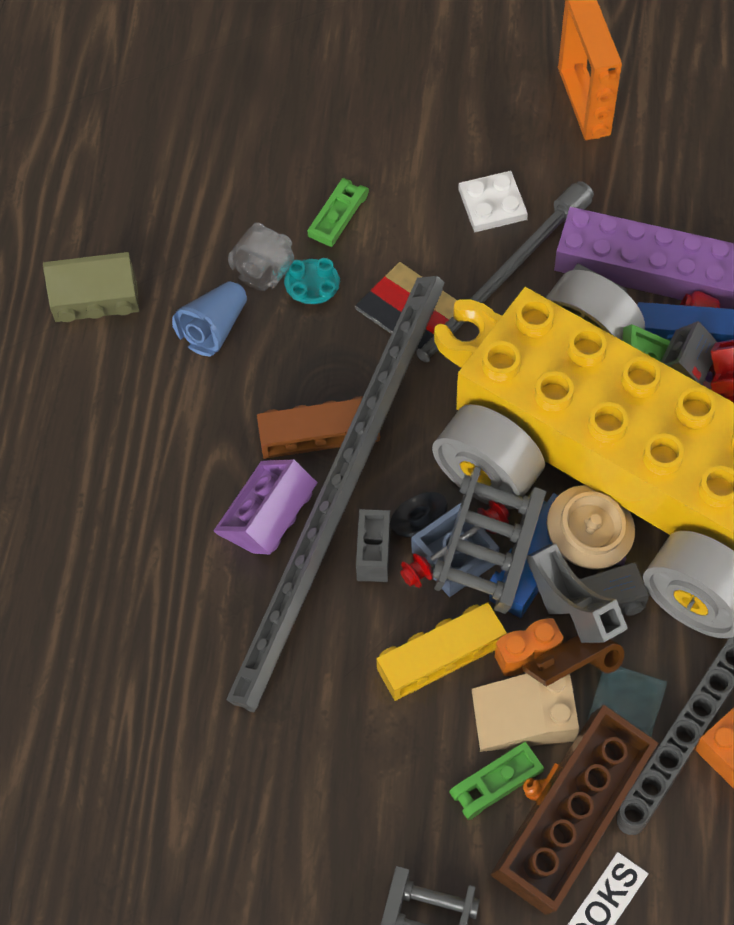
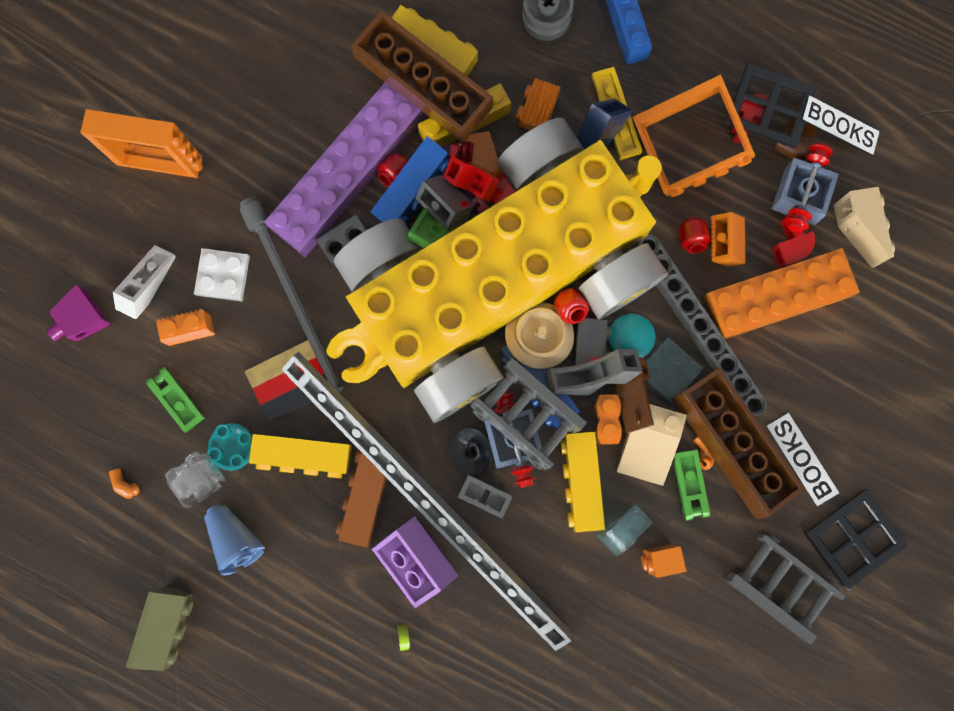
camera: 70 degrees left, 20 degrees up
(175, 527) = (403, 637): none -> lime tile
(224, 201) = (121, 487): none -> orange arm
(334, 346) = (300, 454): none -> yellow brick
(382, 93) = (76, 316): none -> magenta torso
(387, 772) = (663, 560): none -> orange brick
(400, 714) = (625, 531): none -> clear light blue brick
(419, 188) = (185, 327): none -> orange brick
(445, 133) = (142, 283): none -> white slope
(641, 543) = (571, 306): none -> red head
(647, 642) = (632, 332): none -> teal dish

